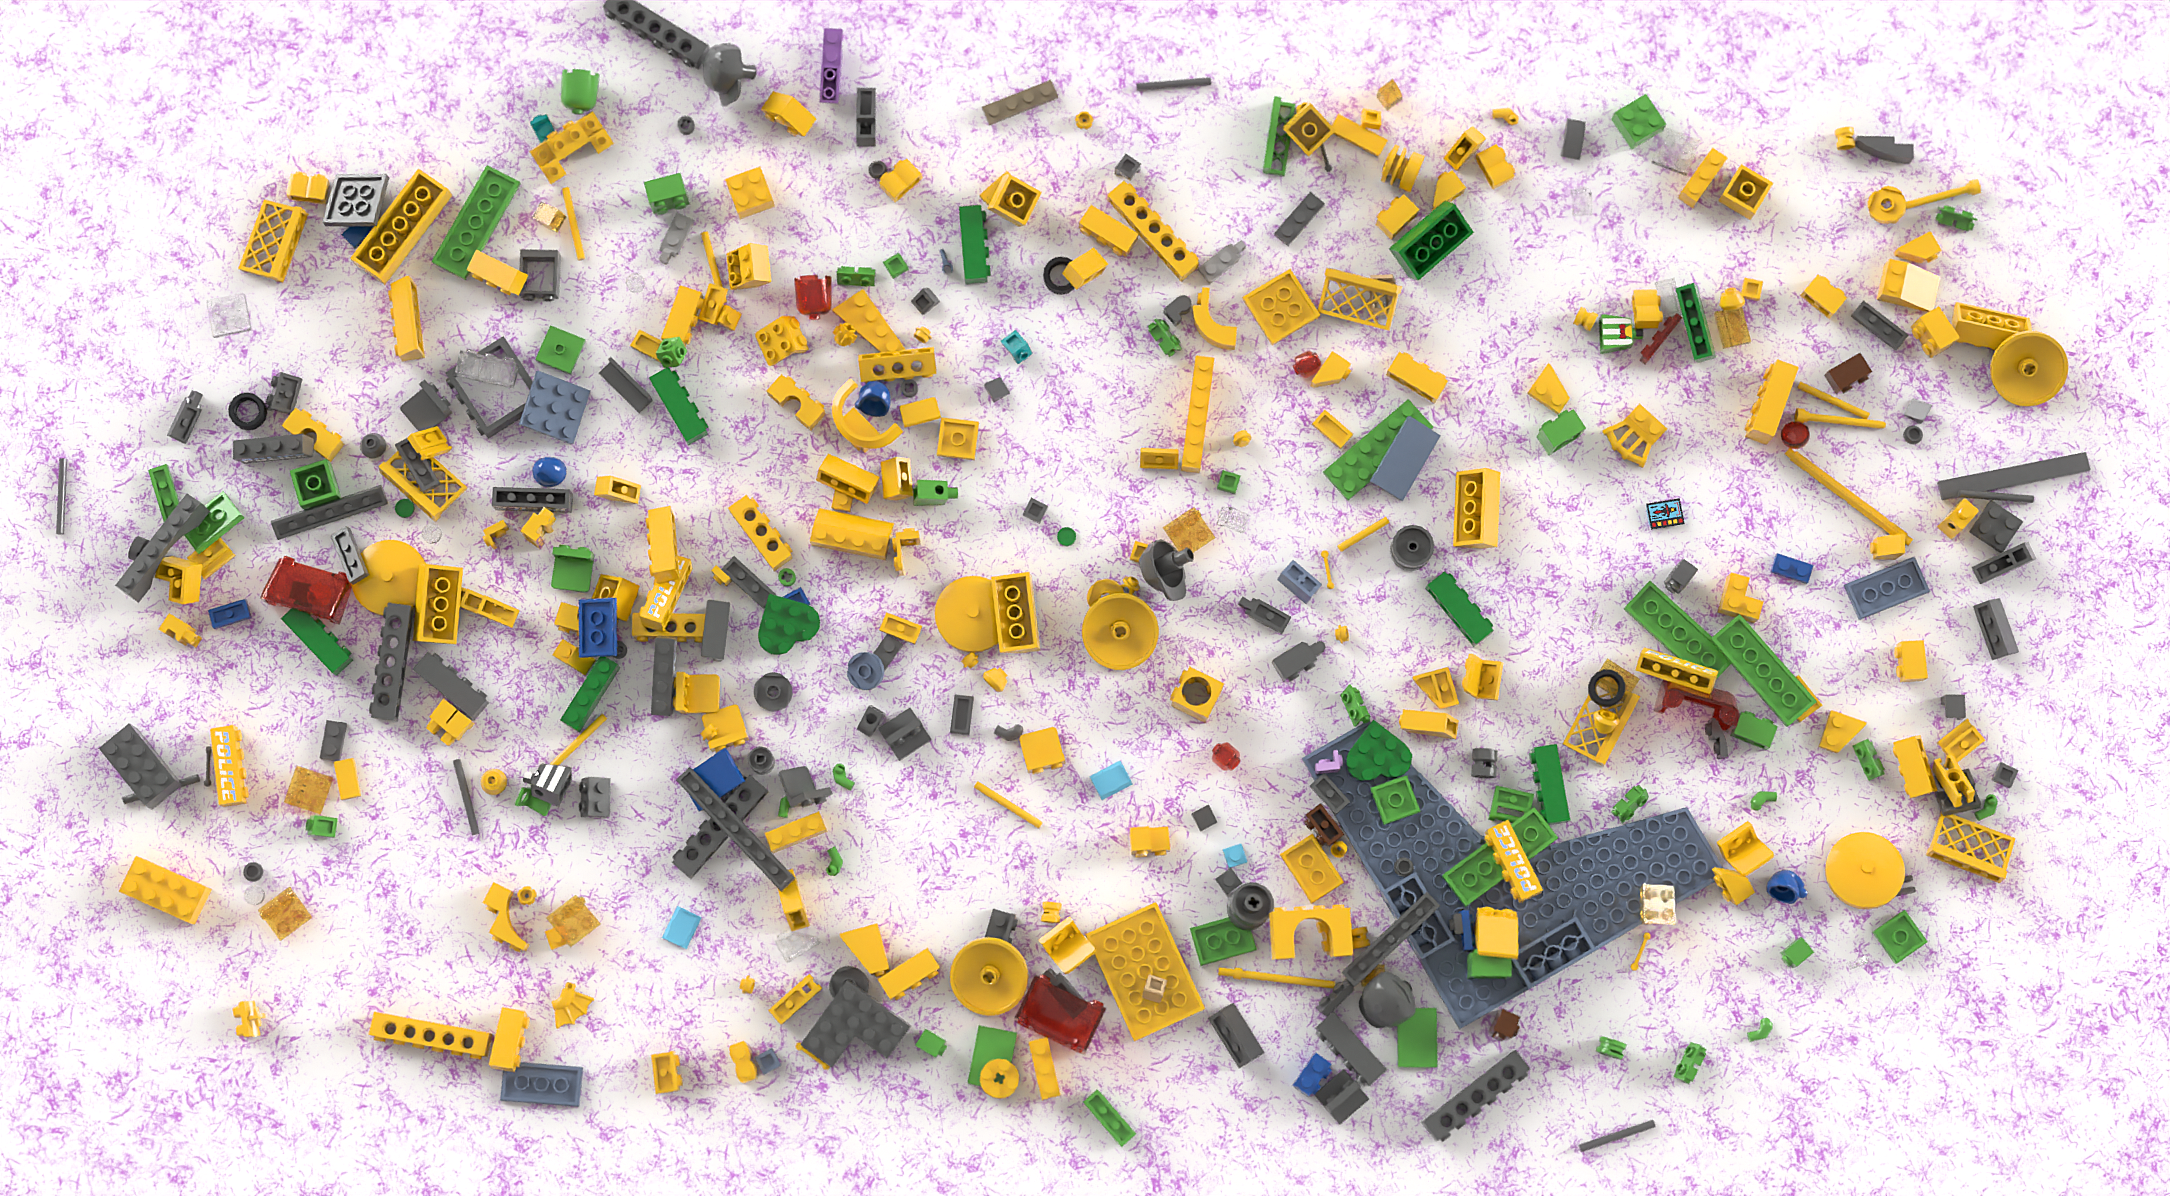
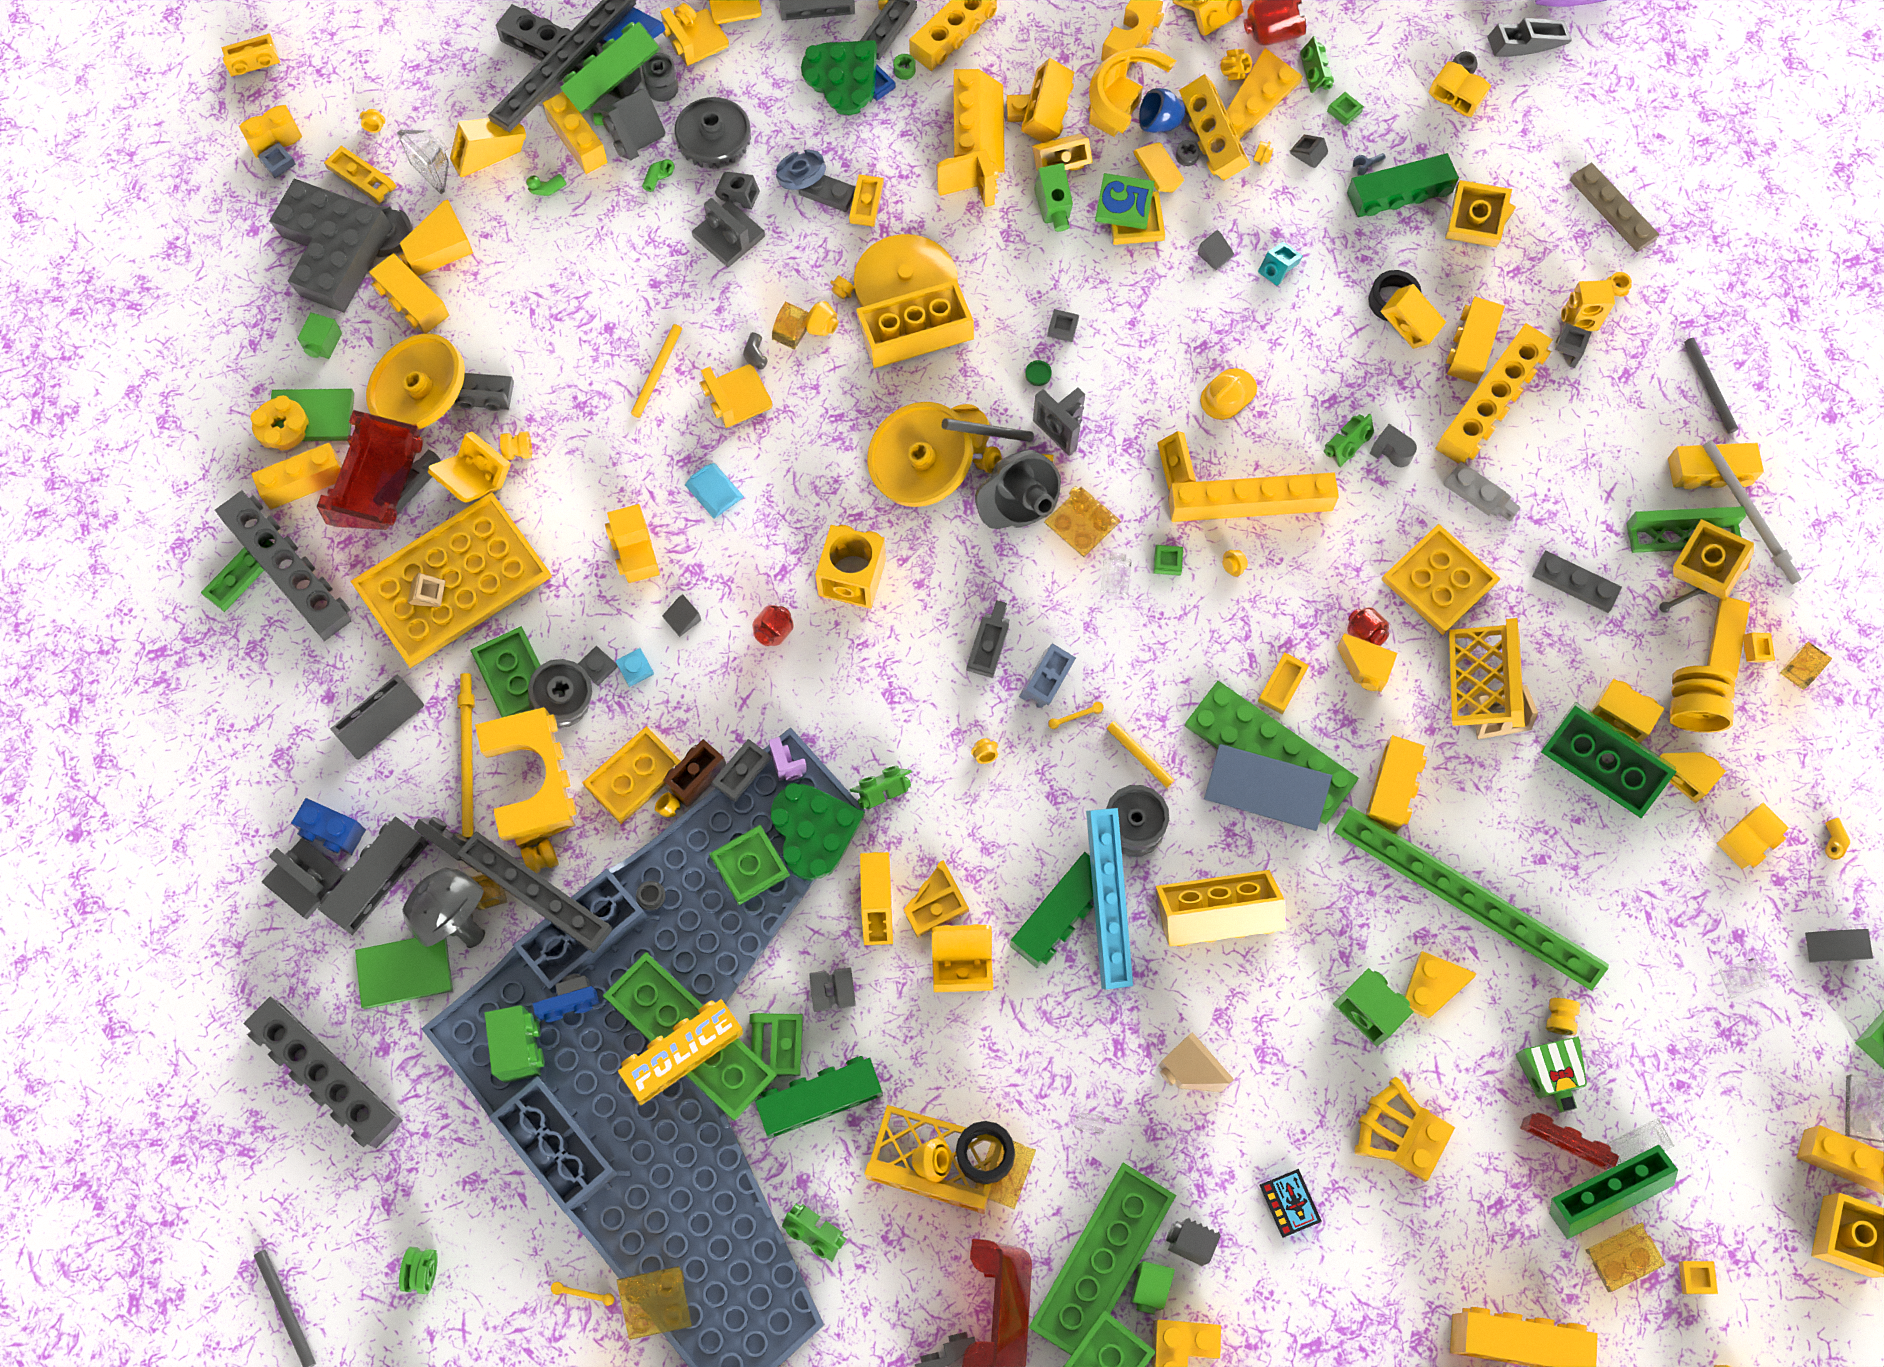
camera: 80 degrees right, 10 degrees down
(681, 927) = (437, 43): medium azure piece -> none
(759, 793) = (610, 67): none -> bright green brick
(766, 683) = (756, 89): dark grey plate -> none
(813, 715) = (712, 131): none -> dark grey wheel
(947, 443) = (1124, 201): none -> bright green tile
(961, 714) = (767, 293): dark grey tile -> none
(994, 702) = (789, 325): none -> clear yellow brick
(1103, 148) = (1589, 304): none -> yellow brick
(1110, 409) = (1228, 393): none -> yellow piece
(1115, 529) = (1062, 419): none -> dark grey bracket
(1116, 579) = (987, 430): none -> dark grey bar
(1161, 1063) = (241, 509): none -> dark grey brick
(1212, 332) = (1374, 508): yellow arch -> none
(1237, 102) = (1693, 467): none -> yellow brick
(1297, 659) = (933, 695): dark grey hinge -> none
(1309, 83) = (1780, 557): none -> light grey bar
(1462, 576) = (1109, 898): none -> medium azure plate
(1464, 147) = (1764, 784): yellow slope -> none
(1496, 932) = (559, 1043): yellow slope -> none
(1499, 353) = (1472, 898): none -> bright green plate
(1504, 1025) = (430, 1092): reddish brown brick -> none
(1575, 551) = (1194, 1067): none -> tan slope
(1646, 309) = (1609, 1107): yellow brick -> none
(1676, 670) = (1038, 1264): yellow brick -> none
(1701, 607) = (1151, 1287): none -> bright green slope
(1731, 299) = (1671, 1245): yellow cone -> none

